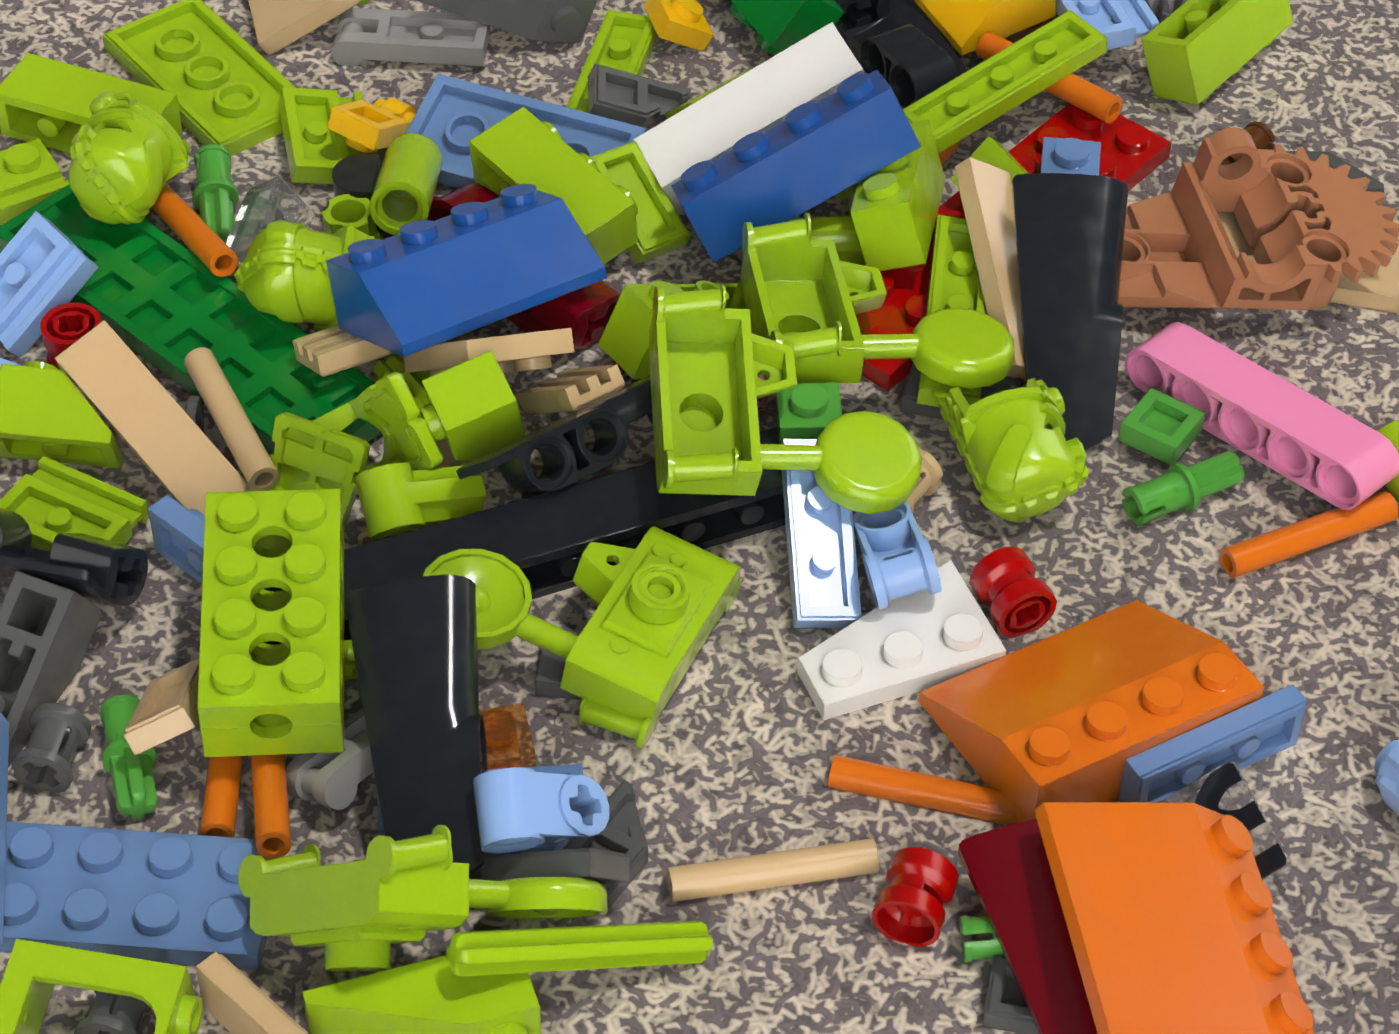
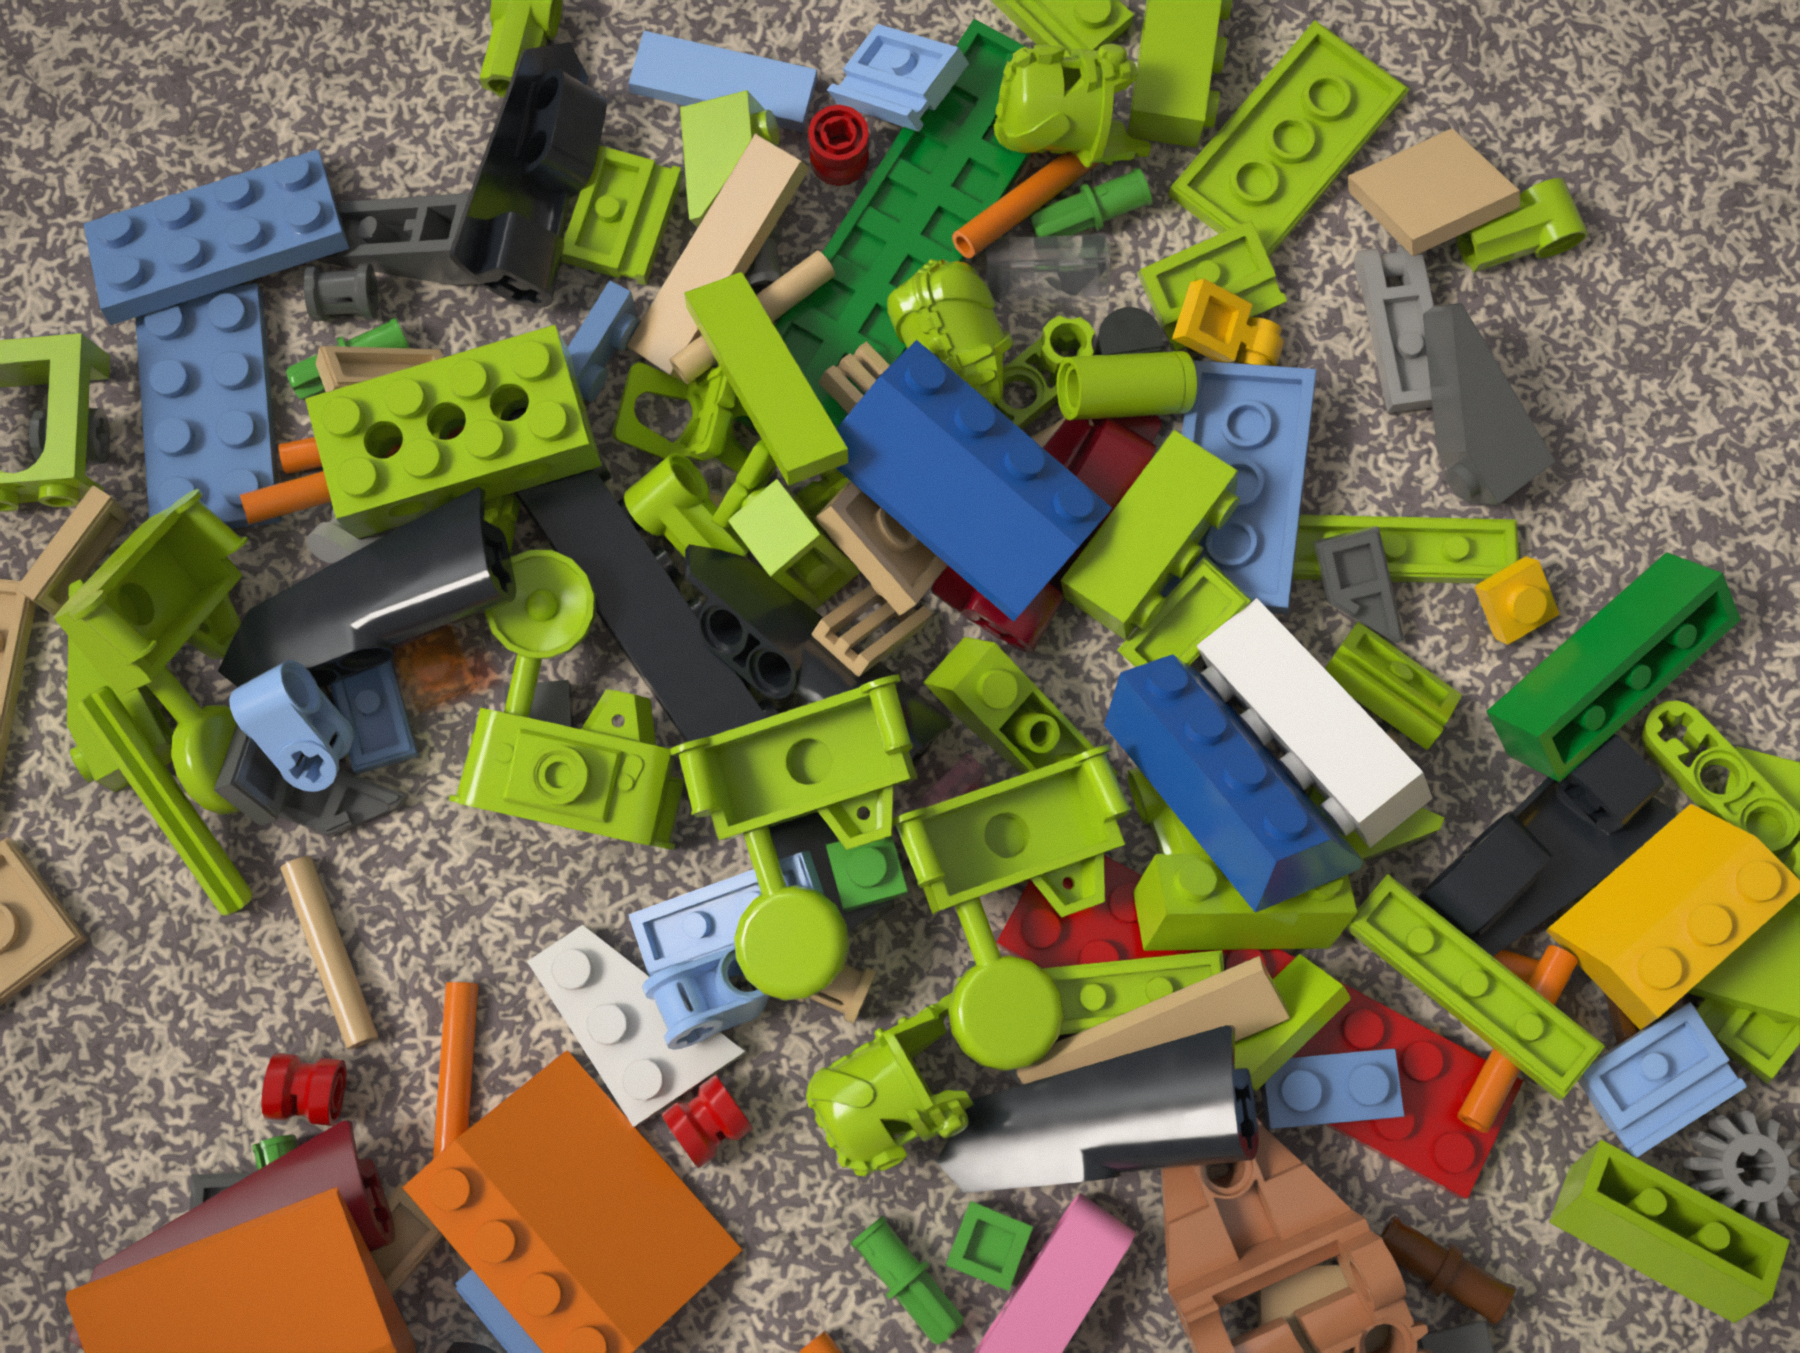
camera: 75 degrees right, 30 degrees up
(313, 376) = (766, 378): none -> lime tile

